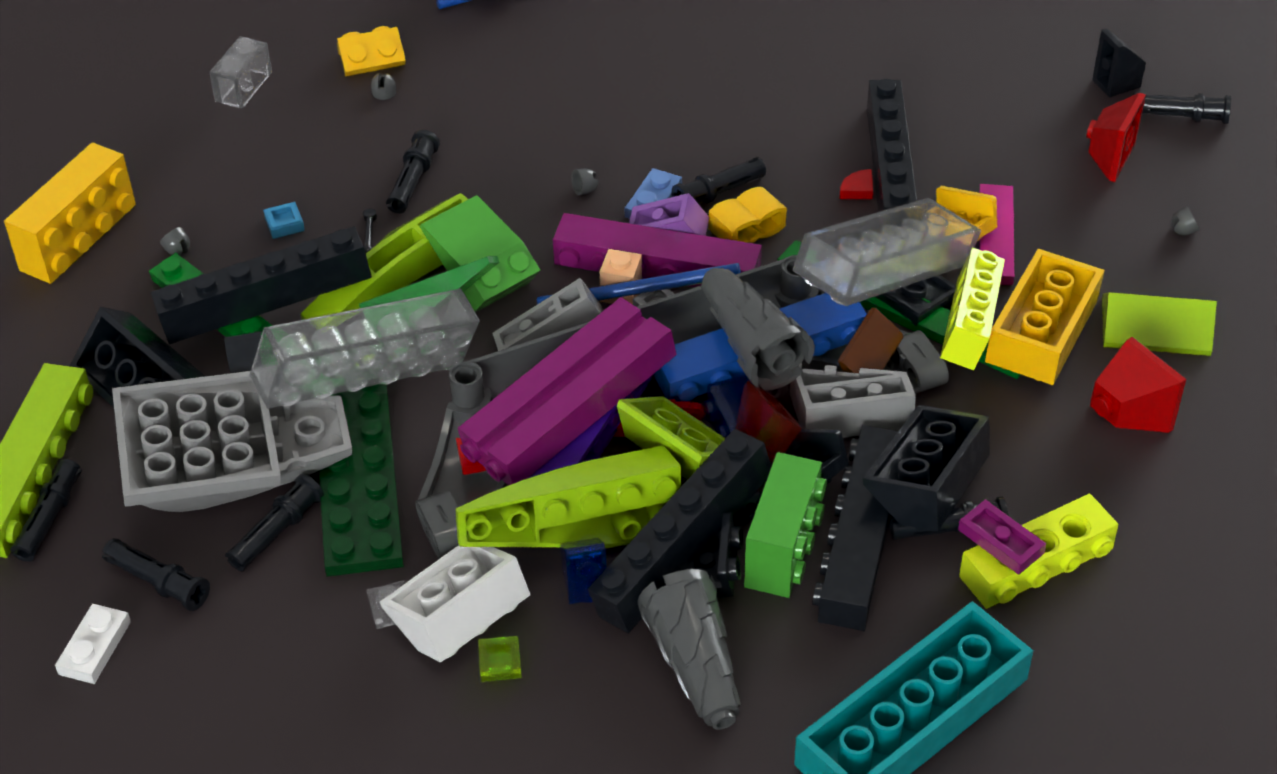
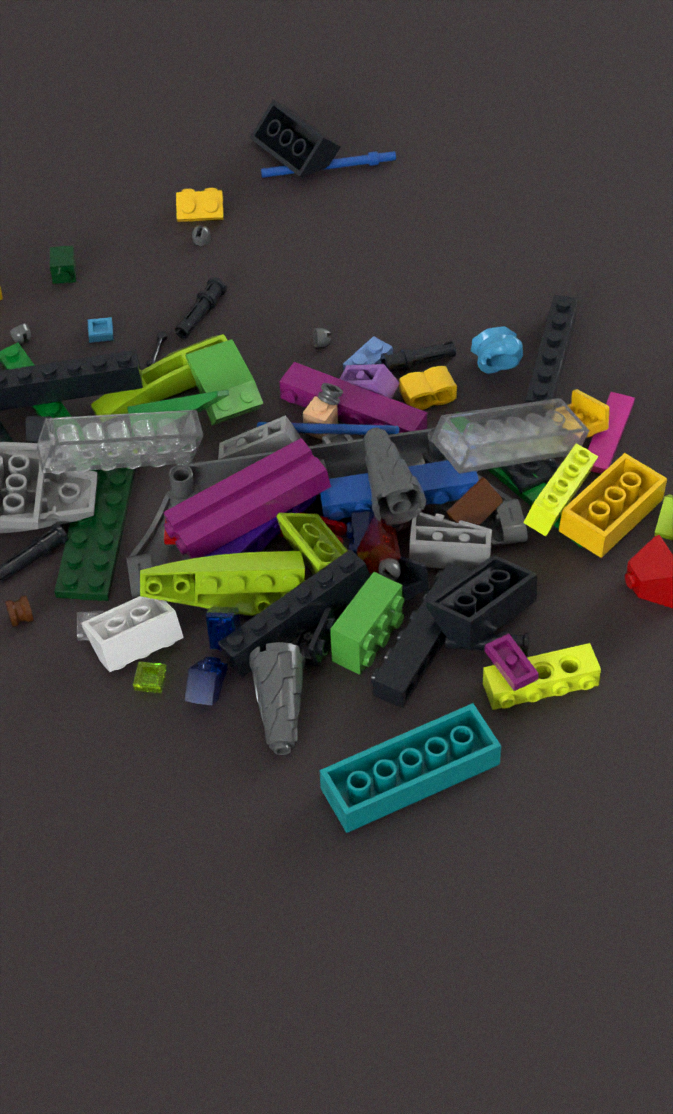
camera: 15 degrees right, 5 degrees up
(209, 147) = (62, 264): none -> dark green brick
(240, 72) = (101, 207): clear brick -> none
(282, 603) = (19, 610): none -> reddish brown wheel
(582, 648) = (205, 681): none -> clear blue slope
(630, 241) = (330, 394): none -> dark grey bush
(791, 440) = (391, 566): none -> dark grey hinge
(823, 155) = (497, 349): none -> dark azure piece
(857, 185) = (520, 376): red tile -> none

